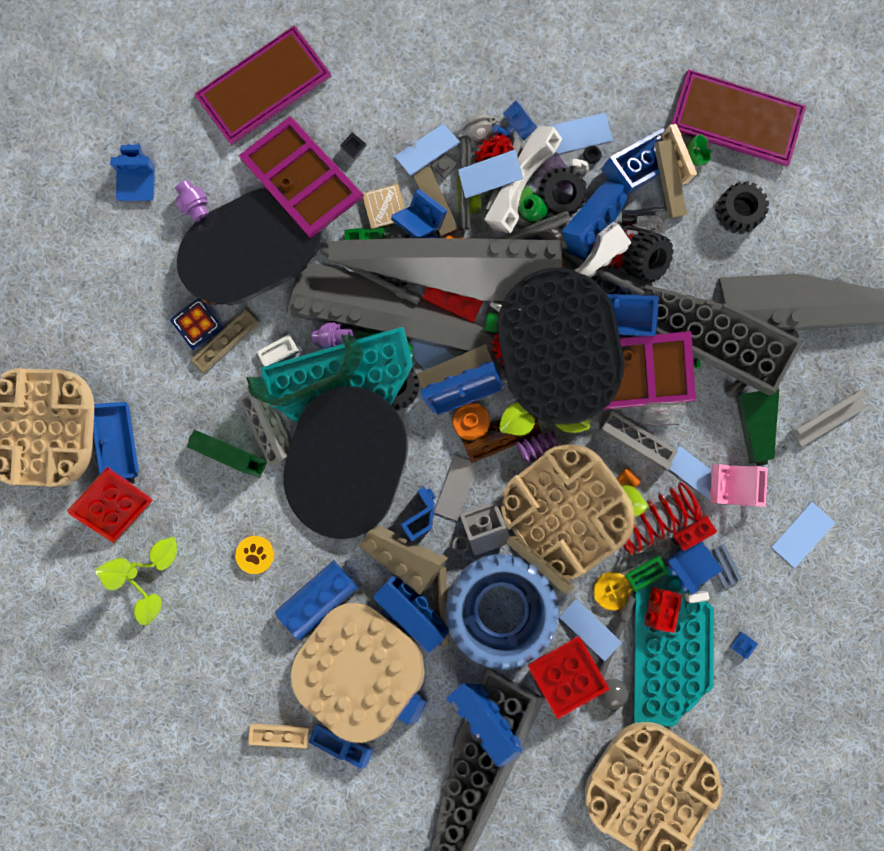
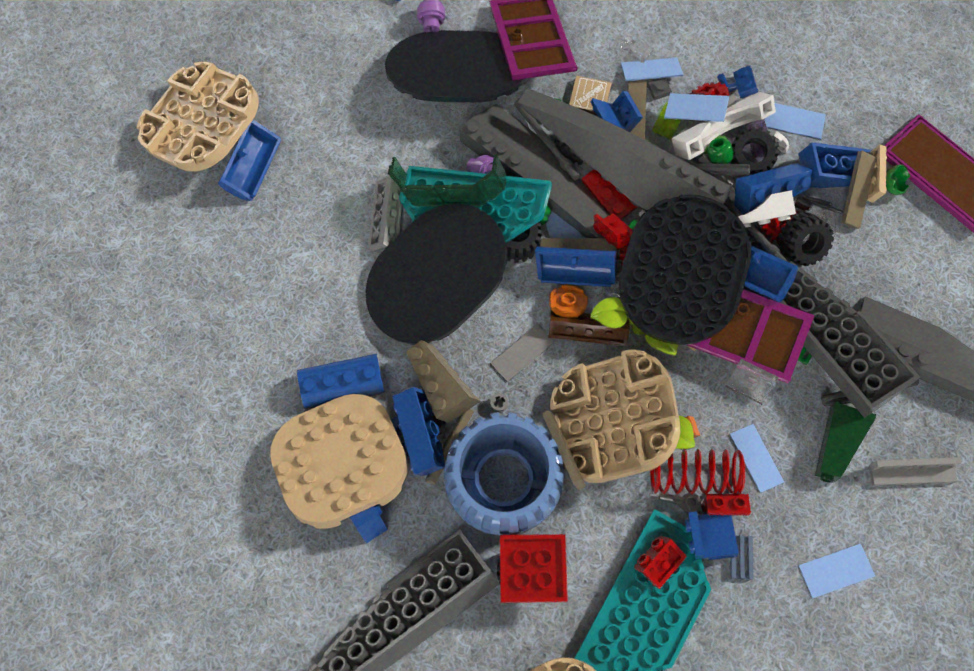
camera: 25 degrees right, 15 degrees down
(109, 505) = (214, 206): red plate -> none
(114, 572) = (183, 255): lime plant -> none
(196, 323) = (376, 106): tile -> none
(225, 341) = (392, 132): dark tan tile -> none
(226, 454) = (339, 219): dark green slope -> none
(254, 554) = (310, 315): yellow tile -> none
(277, 351) = (432, 160): white tile -> none
(278, 735) = (233, 482): tan plate -> none
(352, 752) = (283, 524): blue slope -> none
(353, 145) = (590, 37): black plate -> none
(428, 497) = (474, 359): blue piece -> none
(465, 202) = (662, 122): dark grey axle -> none
(478, 127) = (704, 71): light grey hat -> none
(479, 338) = (613, 230): none -> red bracket
(485, 528) = (529, 398): light grey slope -> none
(486, 722) = (430, 569): blue wedge -> none
(536, 446) = (609, 351): medium lavender piece -> none
(590, 630) = (579, 546): light blue piece -> none
(592, 149) = (799, 136): black plate -> none
(611, 590) = (619, 522): yellow tile -> none
(616, 696) = (567, 620): dark grey hair -> none
(624, 616) = (618, 550): dark grey bar -> none
(632, 581) = (642, 519): green tile -> none
(638, 447) = (712, 401): light grey fence -> none
(696, 597) = (699, 565): white tile -> none
(738, 485) = (793, 485): bright pink piece -> none
(743, 645) = (723, 645): blue tile -> none
(755, 200) = (922, 233): black tyre -> none

